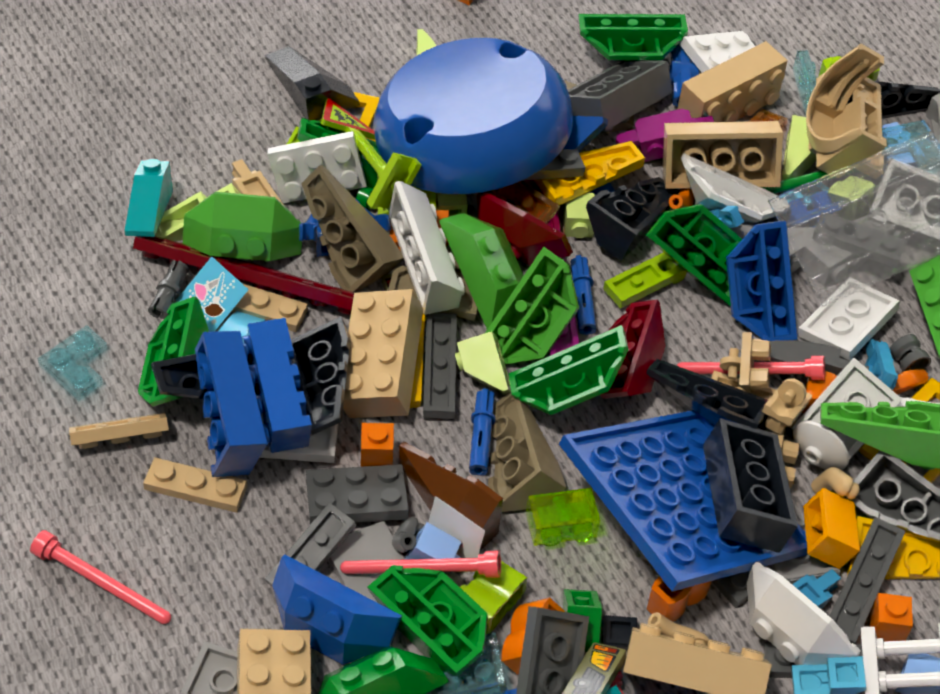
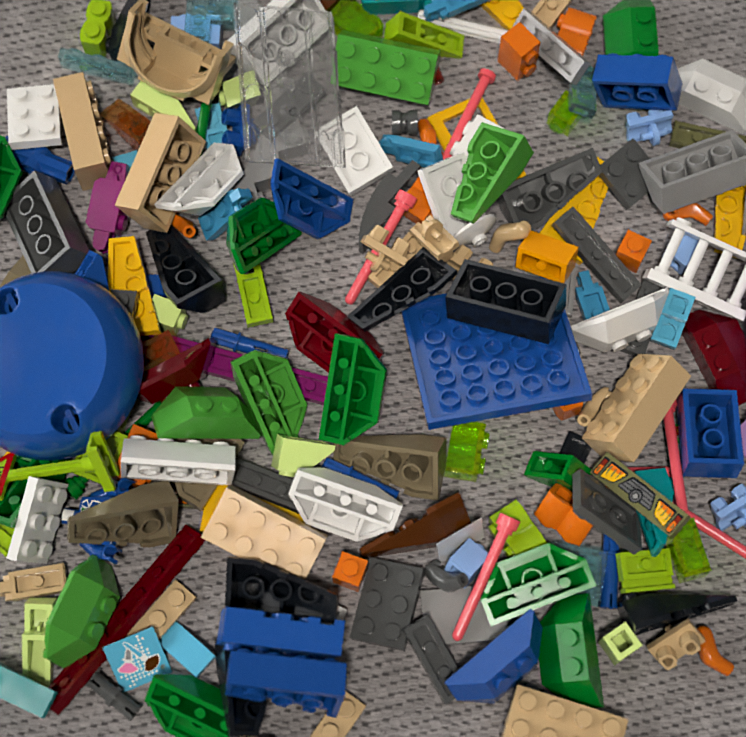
camera: 65 degrees left, 20 degrees up
(446, 405) = (343, 504): none -> white wedge

